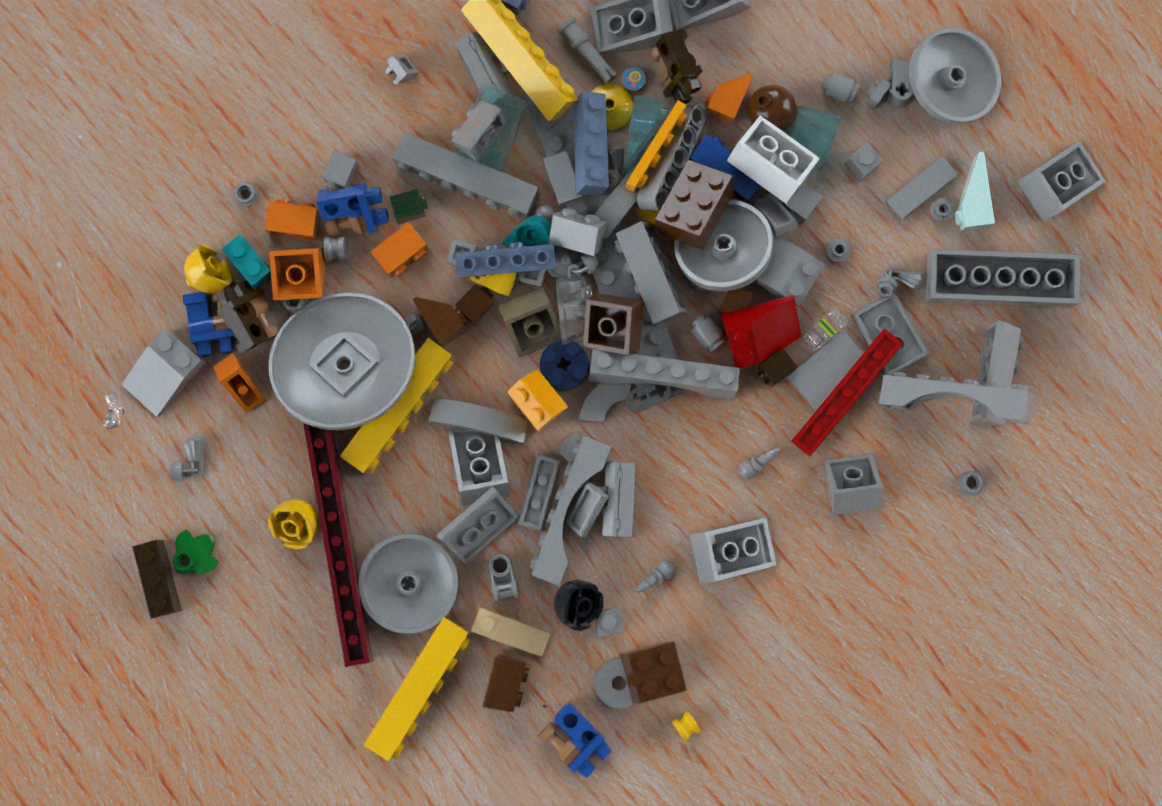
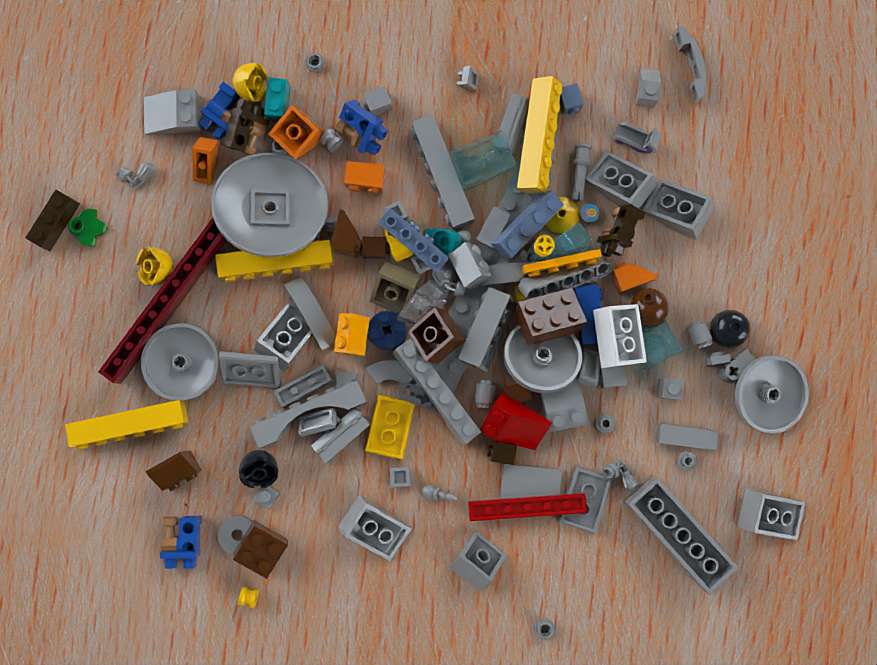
camera: 45 degrees right, 0 degrees up
(114, 413) = (124, 109): clear arm -> none
(292, 220) = (324, 101): orange brick -> none
(408, 206) = (394, 157): clear green brick -> none
(479, 129) = (471, 153): light grey slope -> none
(503, 580) = (232, 415): light grey piece -> none
(510, 631) = (208, 444): tan slope -> none
(630, 143) = (546, 243): none -> yellow wheel
(654, 448) = (390, 427): none -> yellow tile
(663, 572) = (324, 499): light grey bar -> none
(709, 482) = (400, 476): none -> light grey plate
(825, 329) = (552, 459): clear leg -> none
(860, 55) = (730, 328): none -> black cylinder
(975, 204) = (710, 476): light aqua slope -> none
(997, 365) = (621, 583): light grey slope -> none
(1008, 404) = (605, 609): light grey arch -> none

